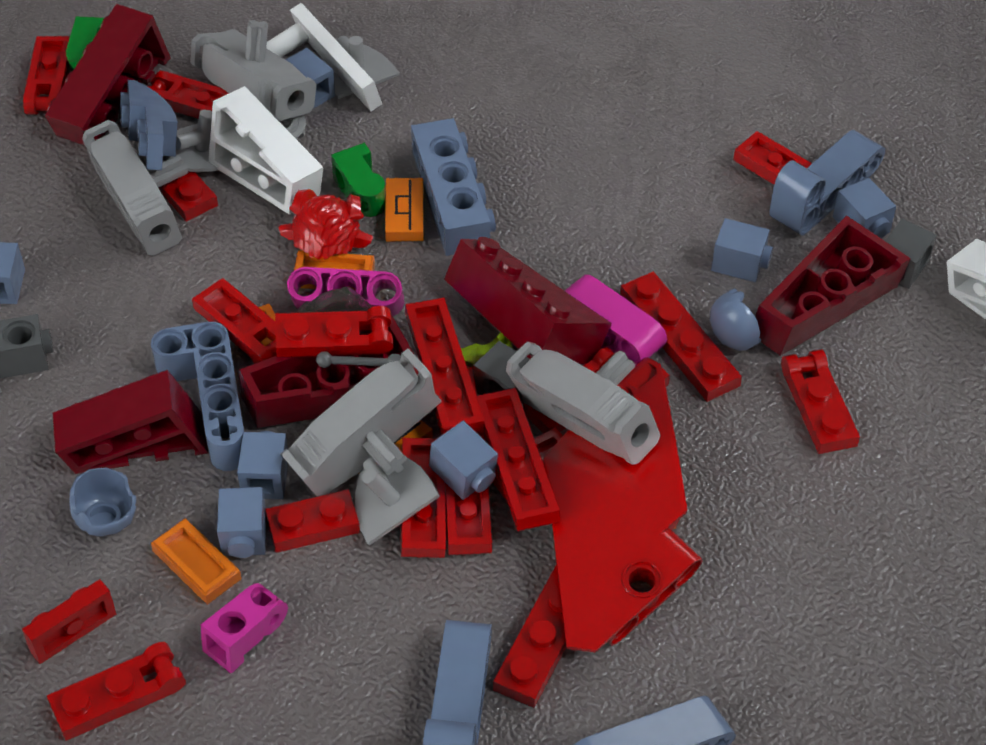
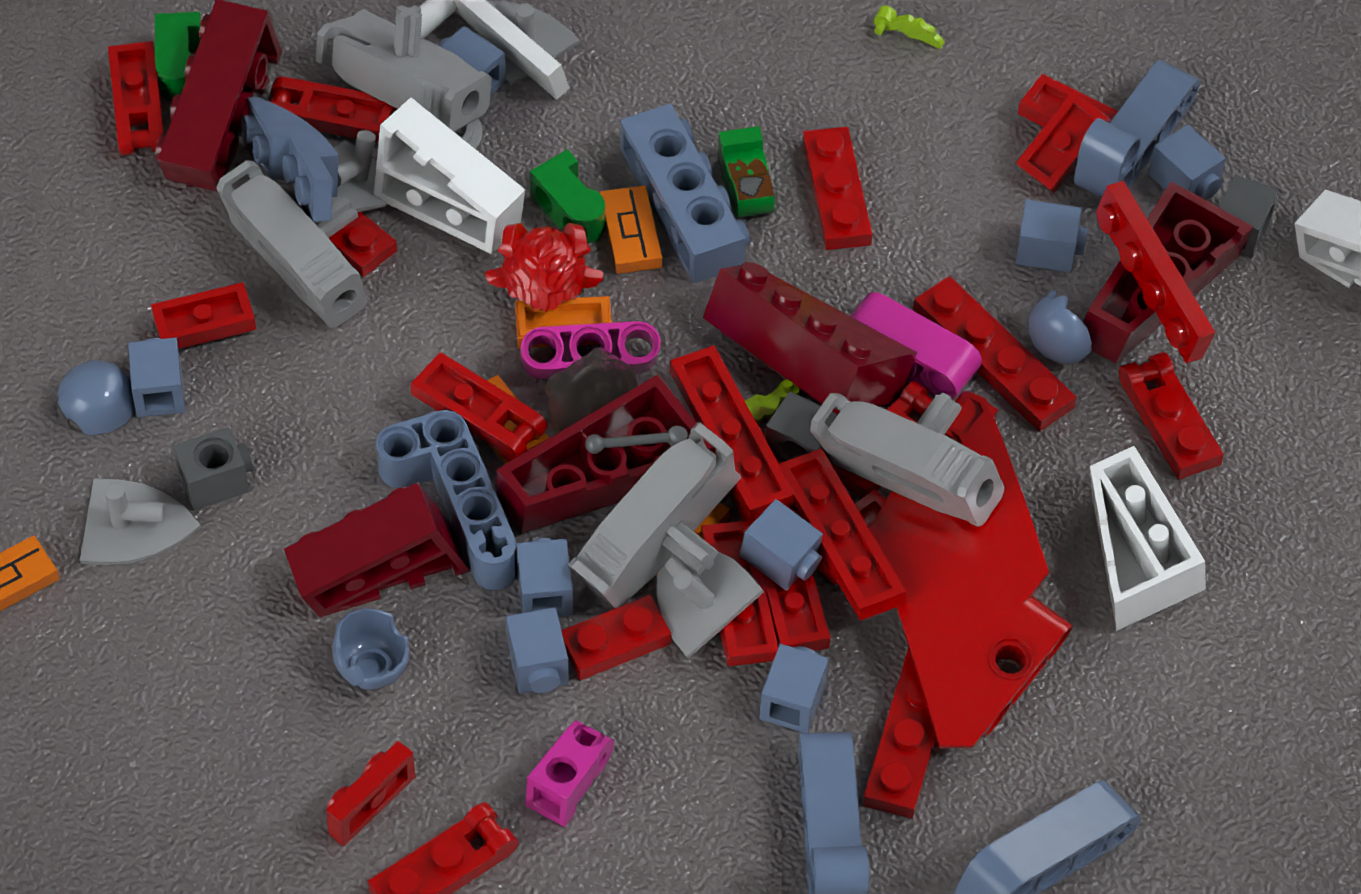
camera: 10 degrees left, 5 degrees up
(50, 233) = (205, 315): none -> red plate
(196, 561) = (492, 703): orange tile -> none
(333, 332) = (598, 410): red plate -> none
(451, 581) = (794, 688): none -> sand blue brick
(504, 175) = (745, 171): none -> green leg
(576, 198) = (837, 188): none -> red plate
(660, 89) = (914, 28): none -> lime piece
(755, 187) = (1058, 144): none -> red plate
(777, 499) = (1142, 540): none -> white wedge
(820, 280) = (1155, 272): none -> red plate

